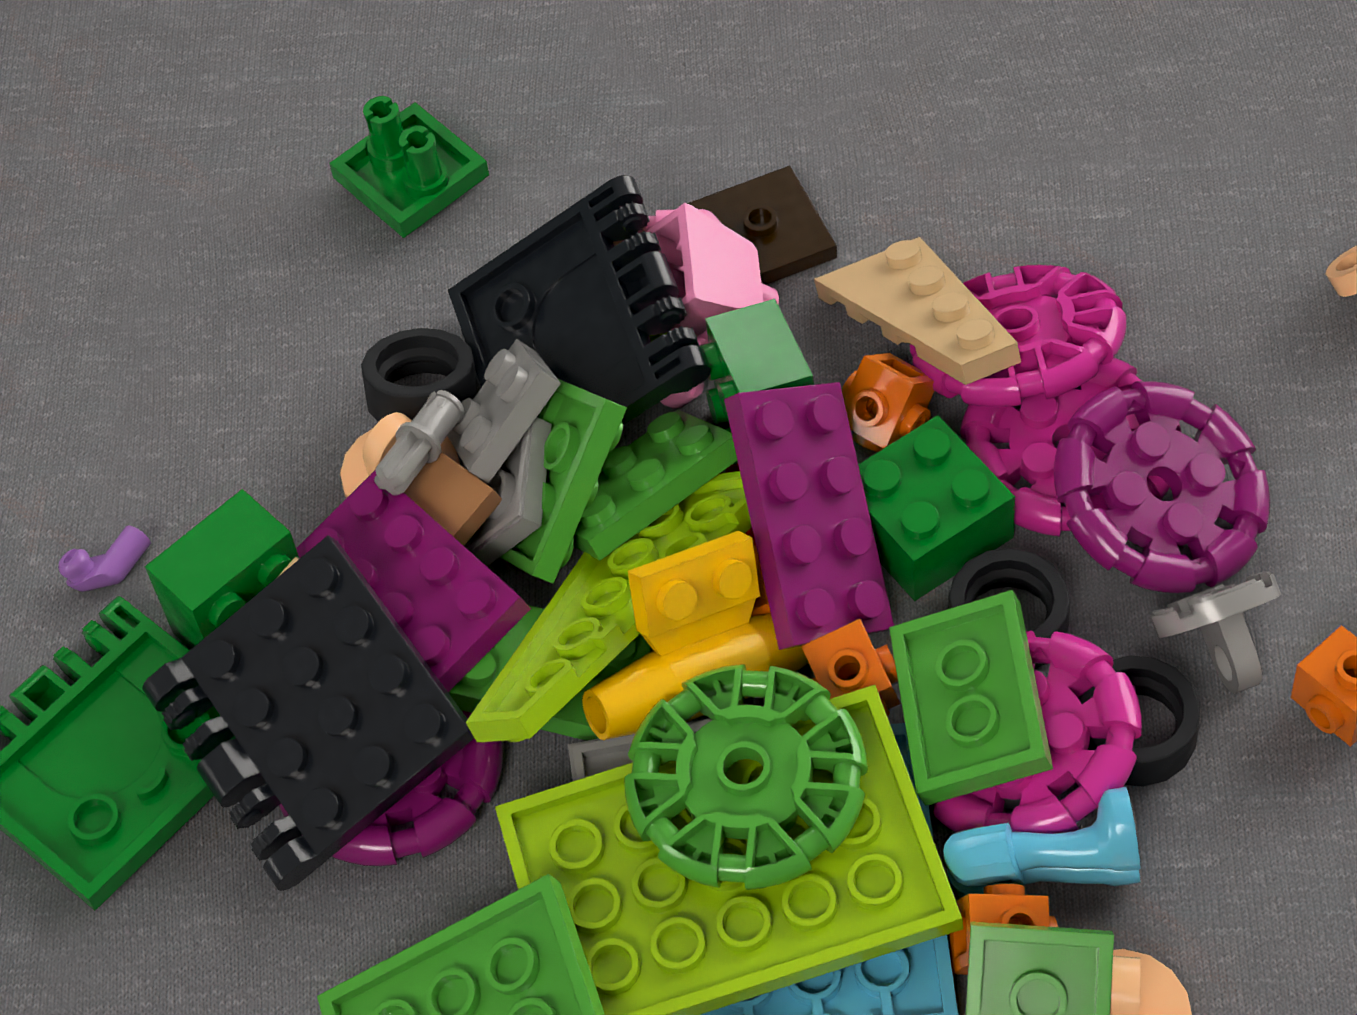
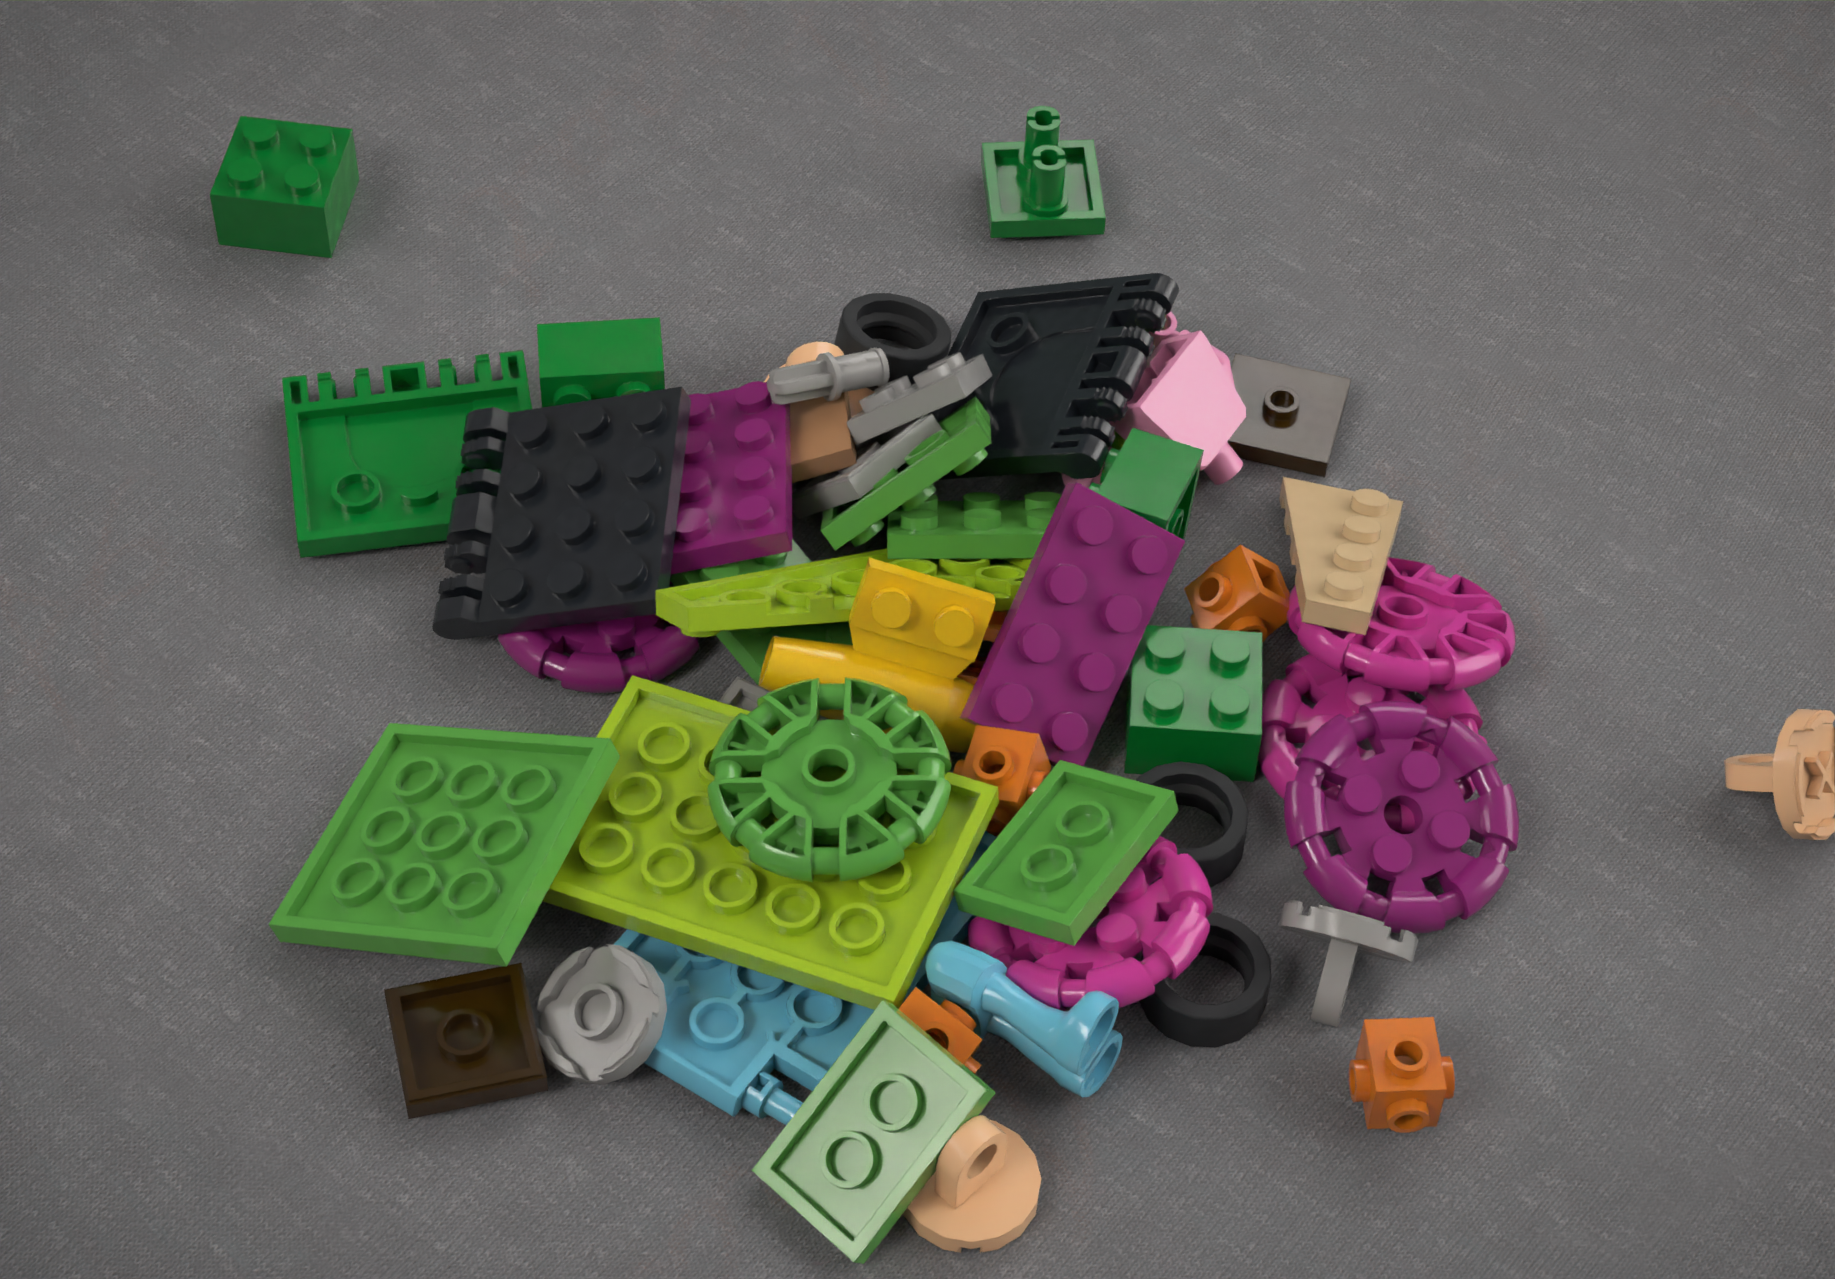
camera: 30 degrees right, 5 degrees down
(104, 570) = (522, 323): medium lavender arm -> none

